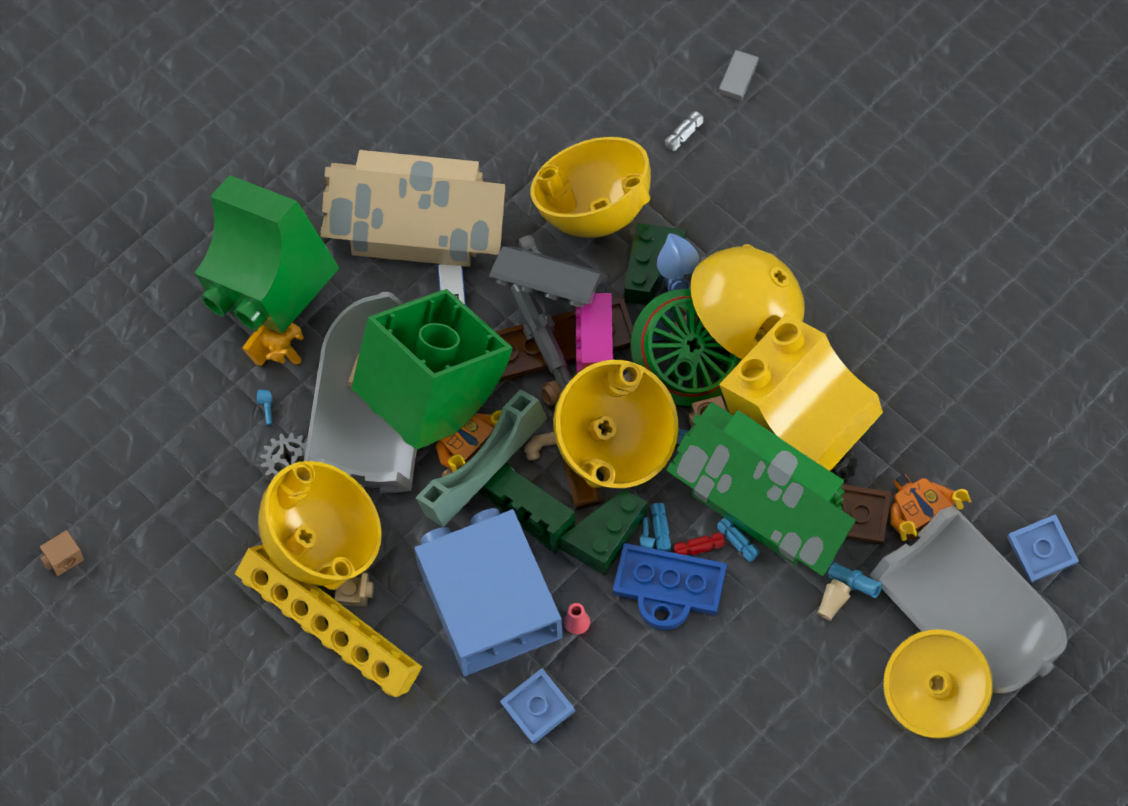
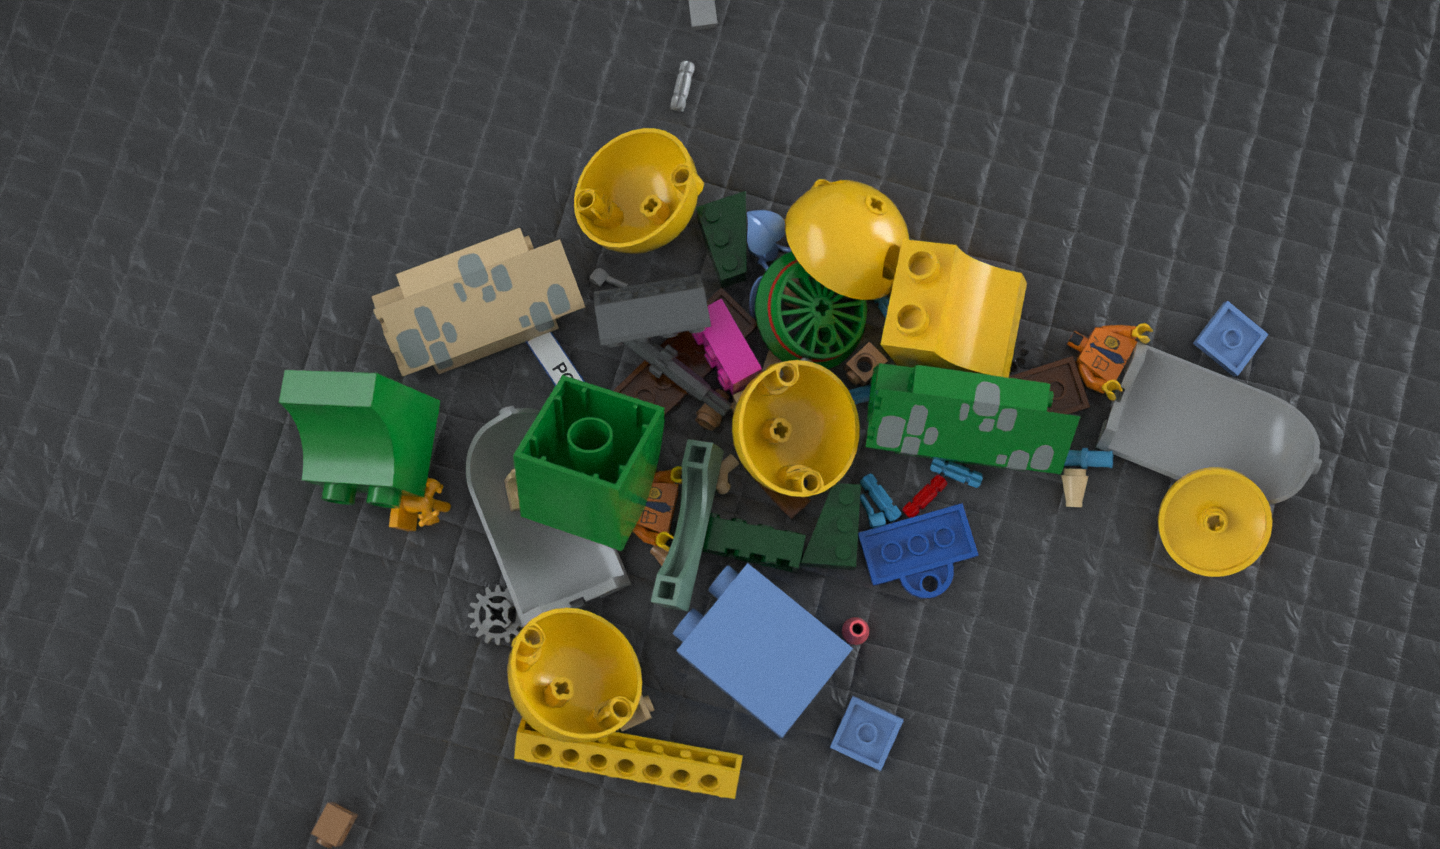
camera: 30 degrees left, 15 degrees up
(265, 397) = (439, 562): dark azure hand -> none

